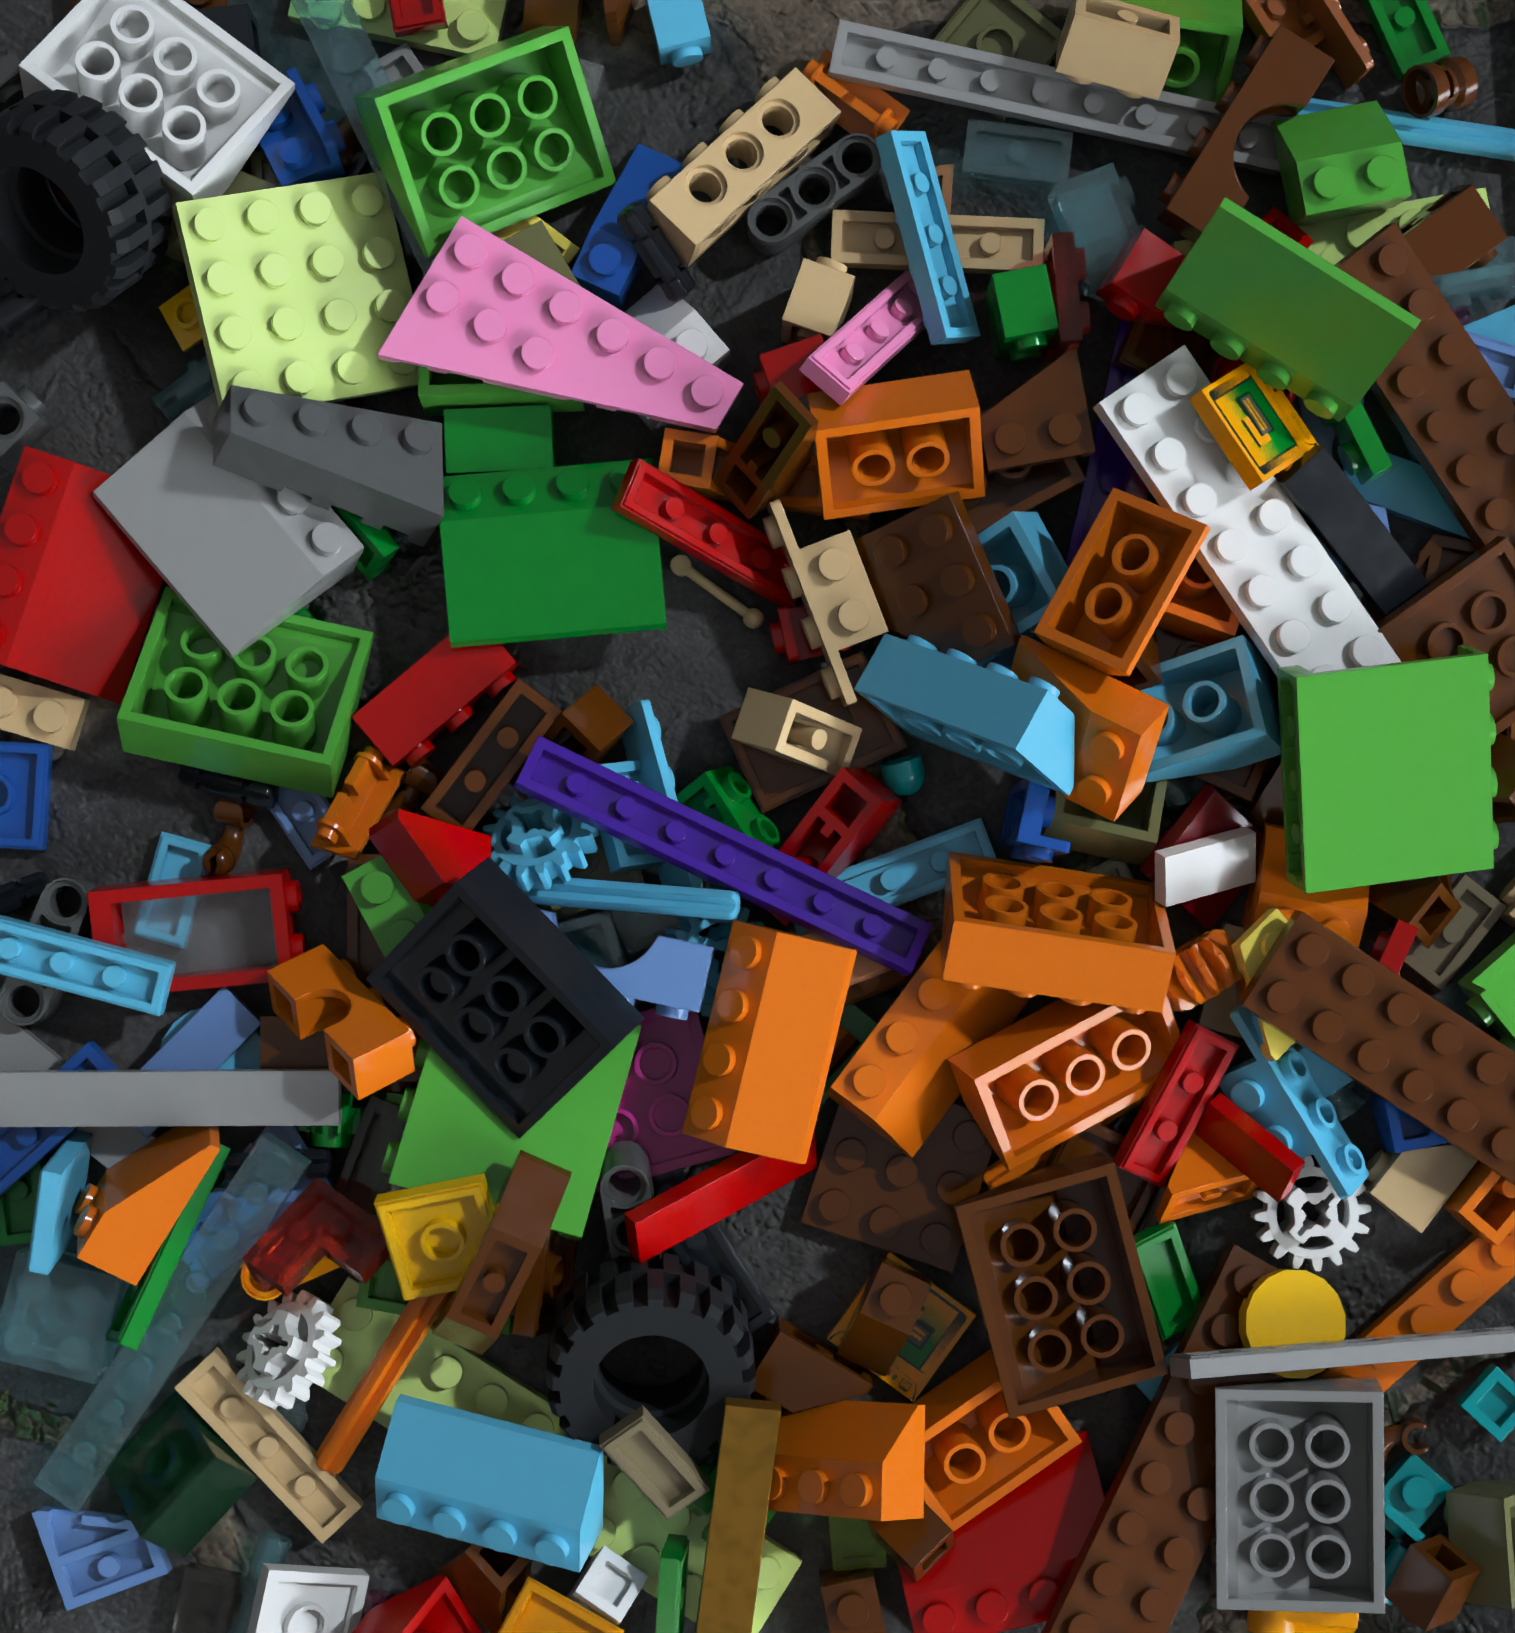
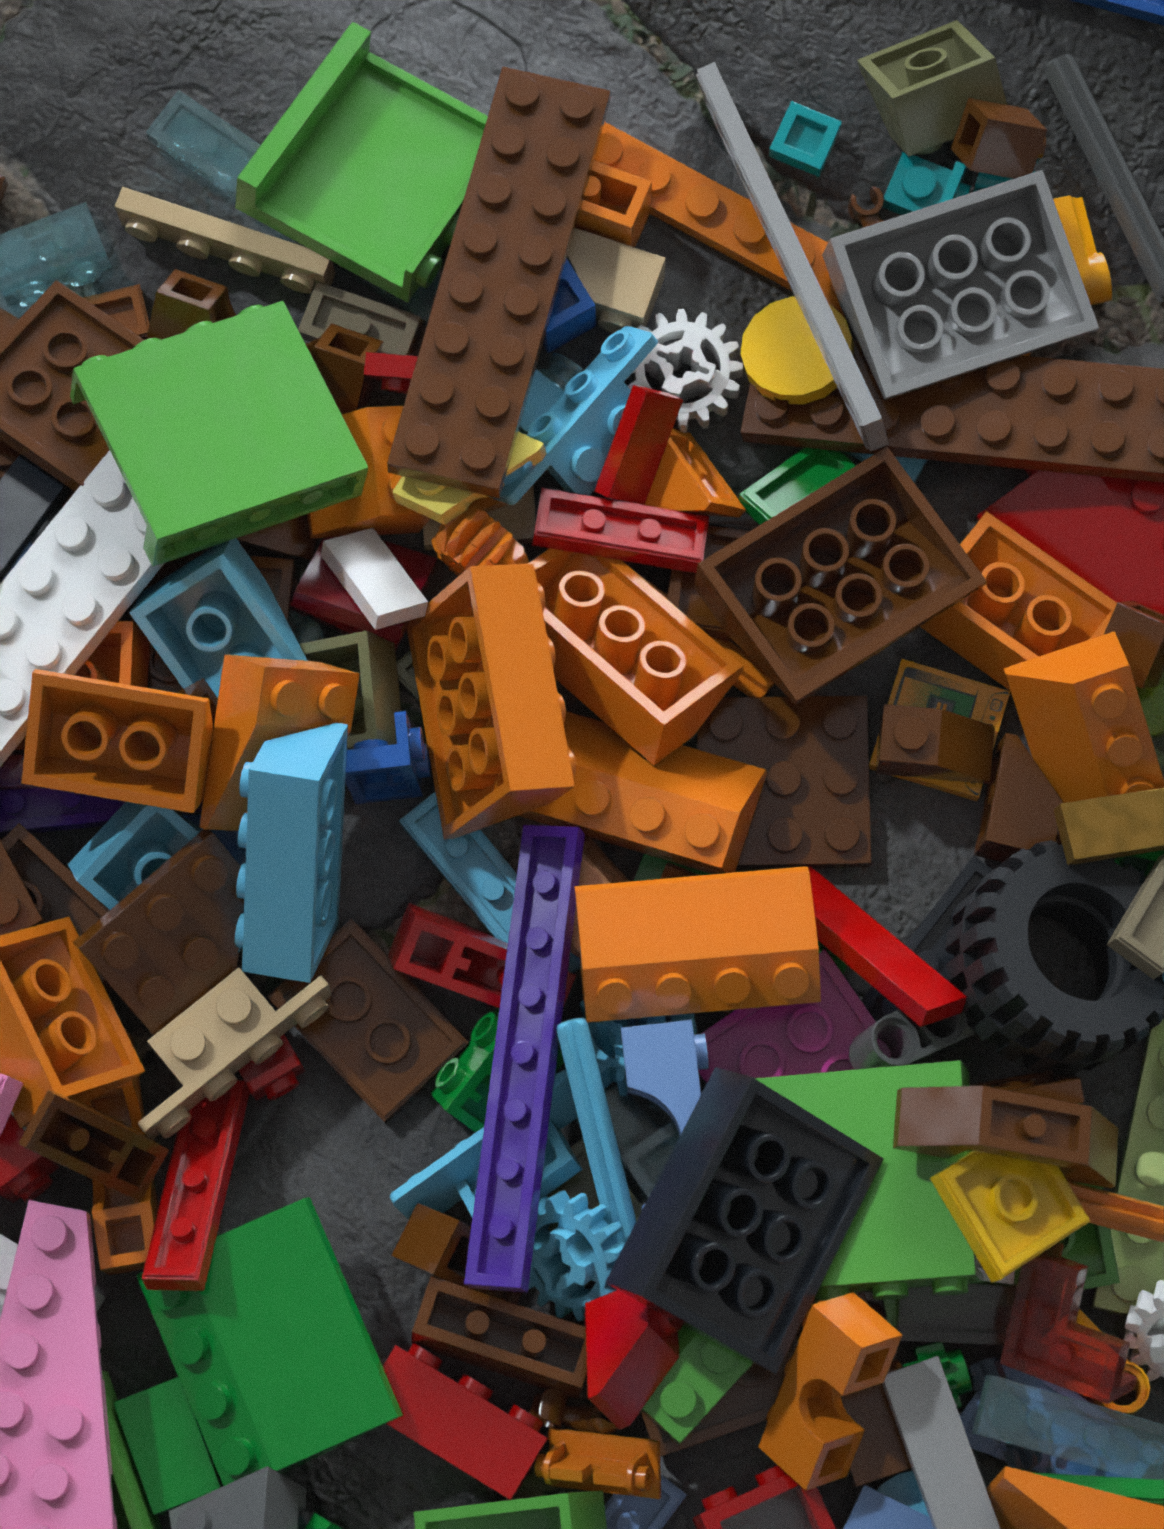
camera: 105 degrees left, 10 degrees down
(682, 567) = (239, 1214): tan hinge -> none
(796, 731) = (373, 1032): tan slope -> none
(904, 774) = (379, 912): teal hinge -> none

